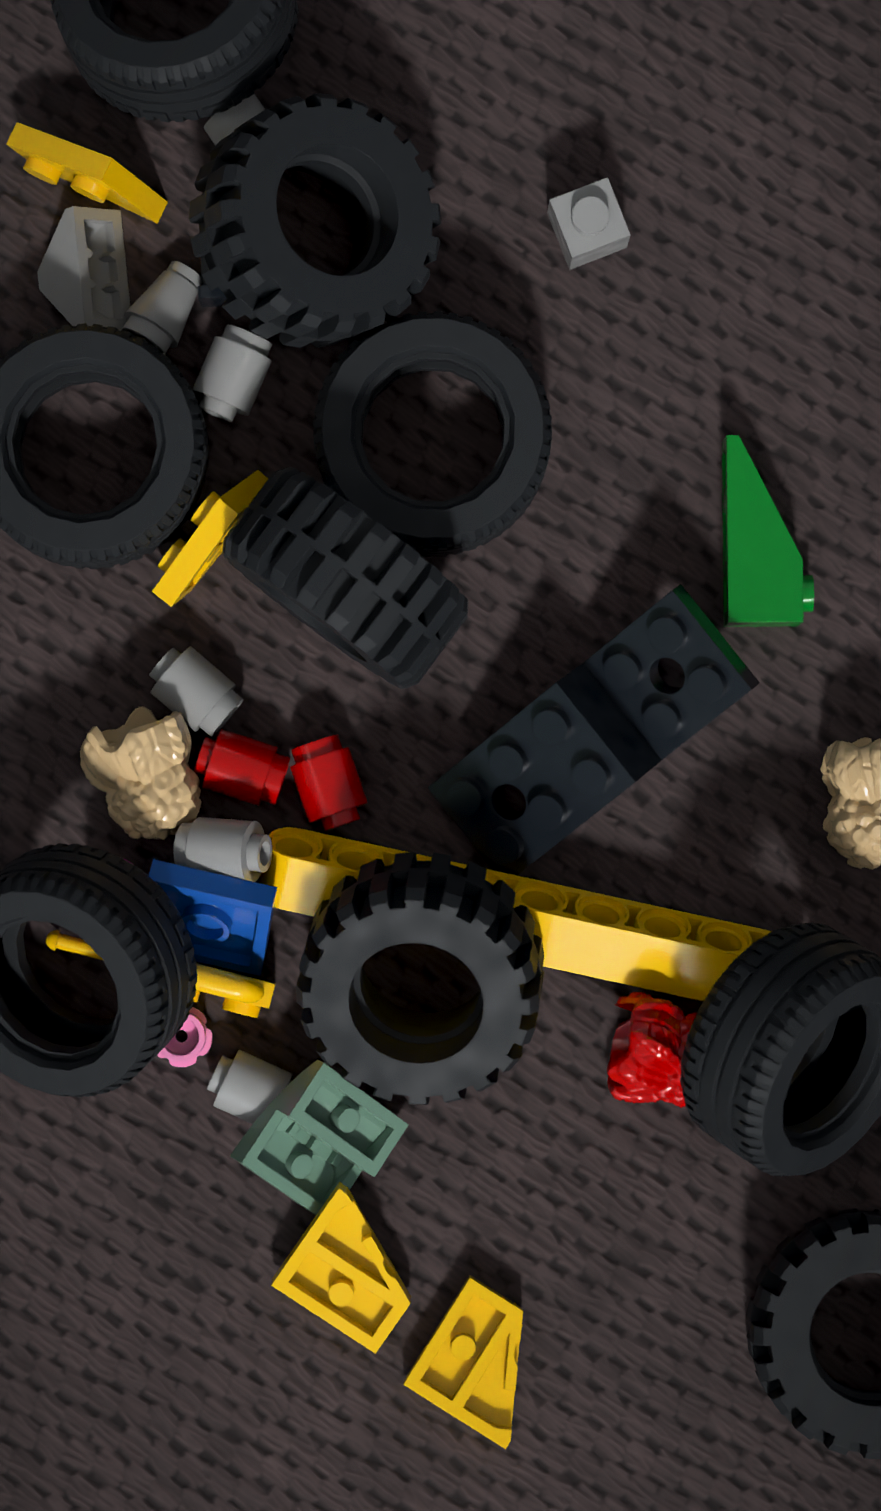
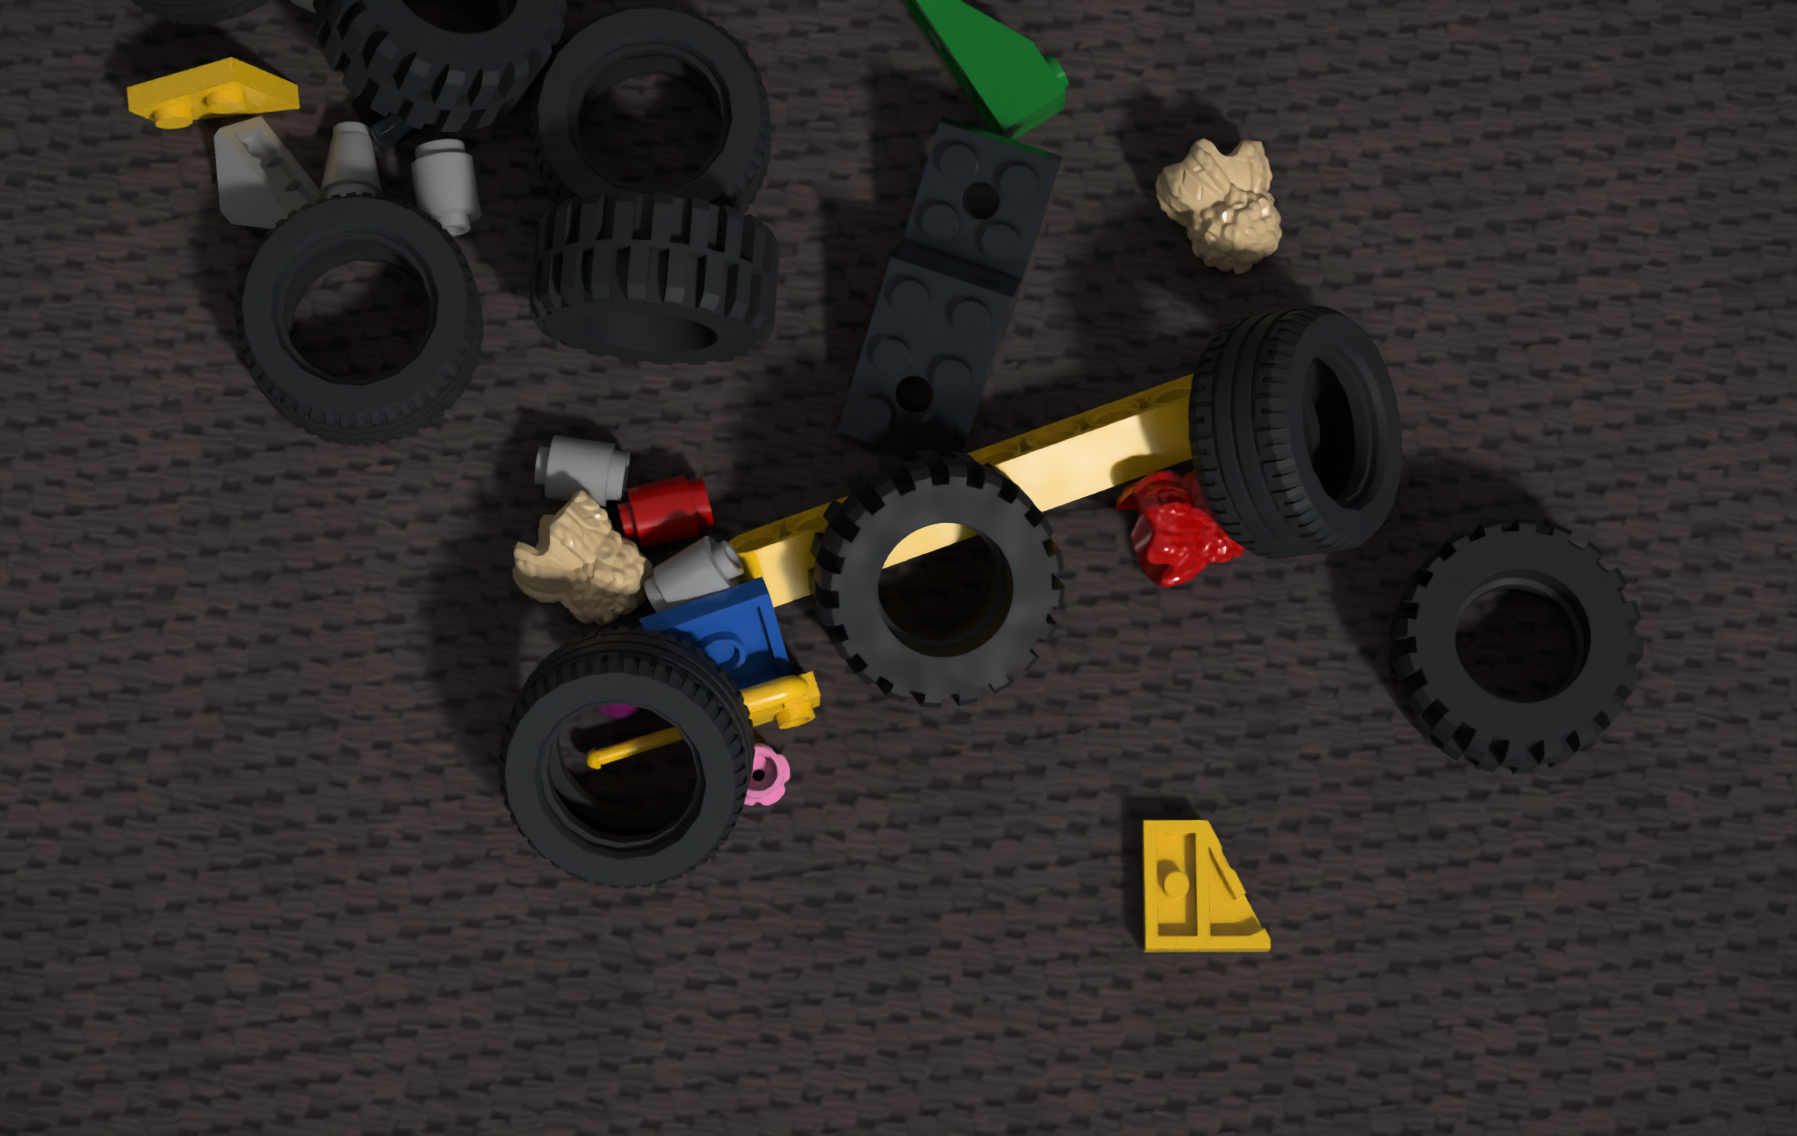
camera: 30 degrees left, 10 degrees down
(190, 560) = (508, 364): yellow wing -> none
(246, 1085) = (853, 779): light grey brick -> none
(318, 1136) = (936, 781): sand green slope -> none
(328, 782) = (747, 478): red brick -> none
(345, 1273) = (1032, 885): yellow wing -> none

